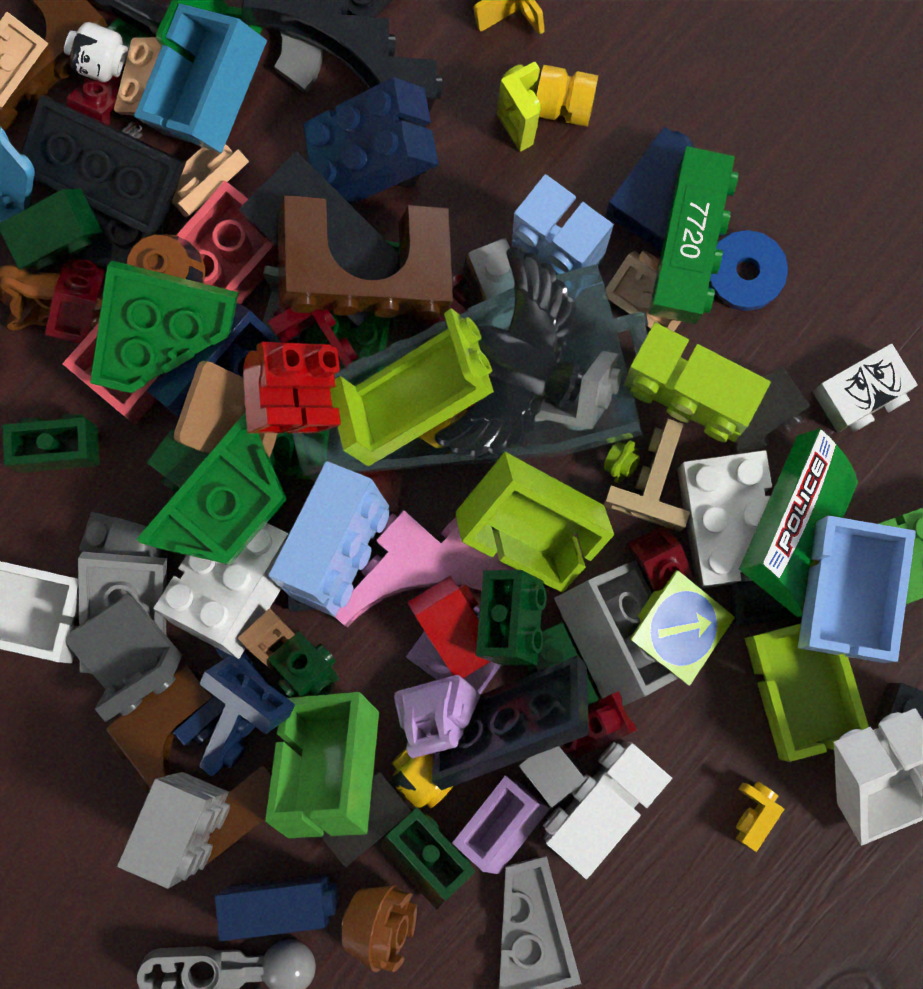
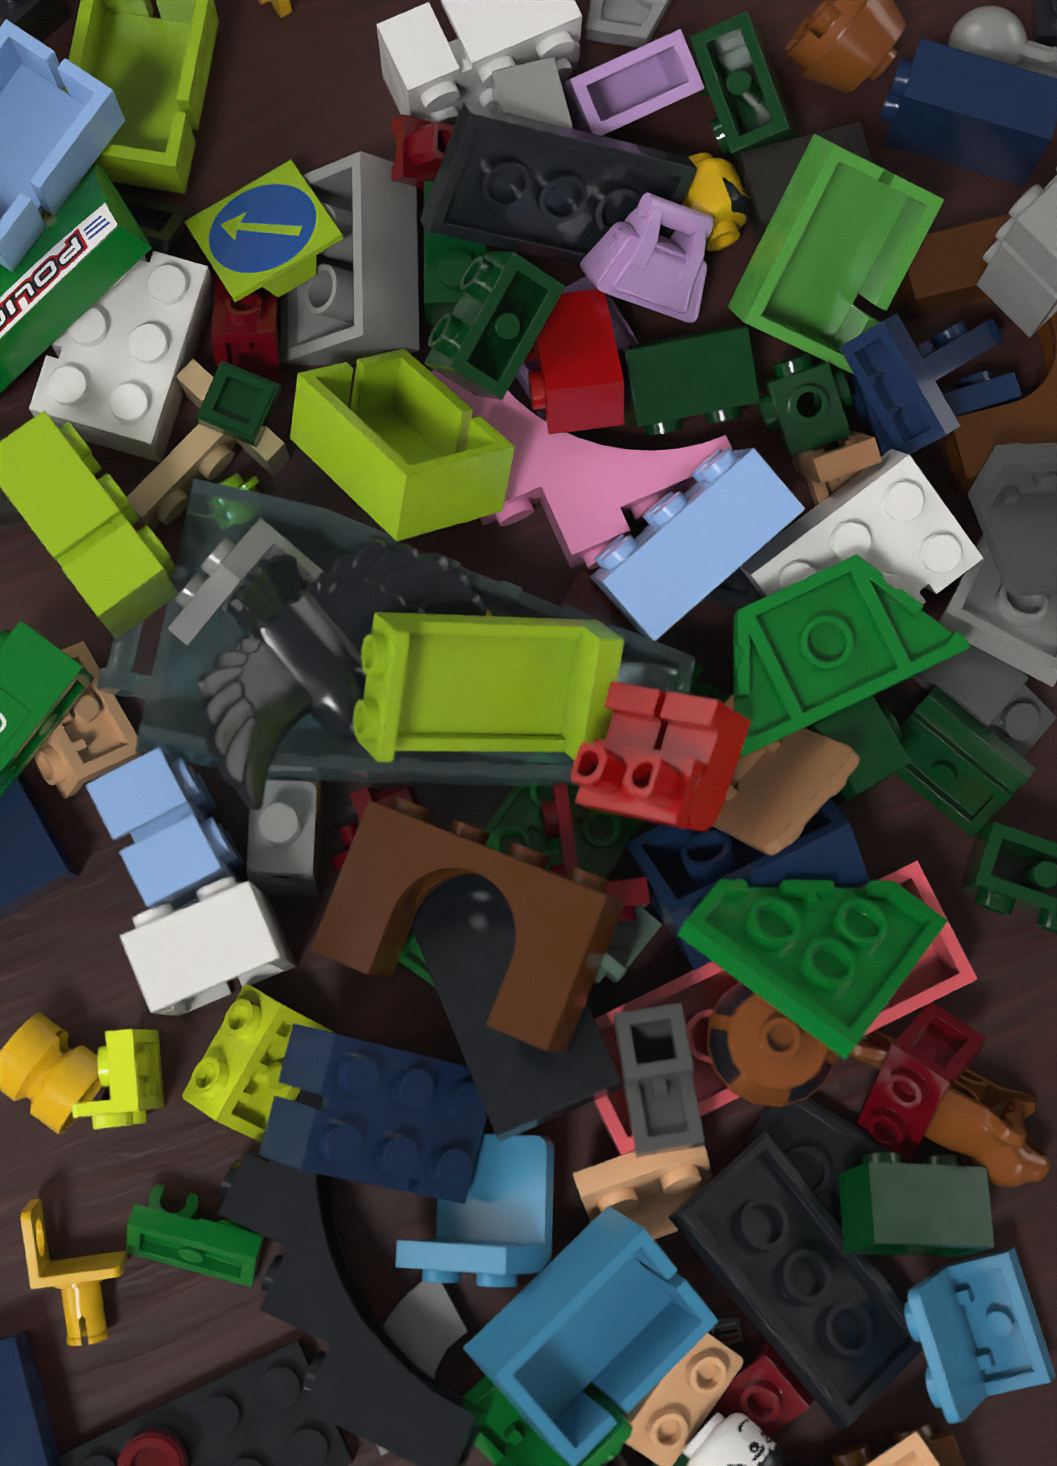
camera: 165 degrees left, 0 degrees up
(124, 492) = (959, 762): none -> dark green plate
(217, 217) = (658, 1079): none -> dark grey brick
(276, 115) = (502, 1224): none -> dark azure bracket
(384, 654) = (688, 377): none -> dark green brick
(459, 43) = (202, 1246): none -> green plate
(460, 151) = (244, 1063): none -> neon yellow bracket
(501, 182) = (194, 951): none -> white piece
(643, 509) = (238, 403): none -> dark green tile

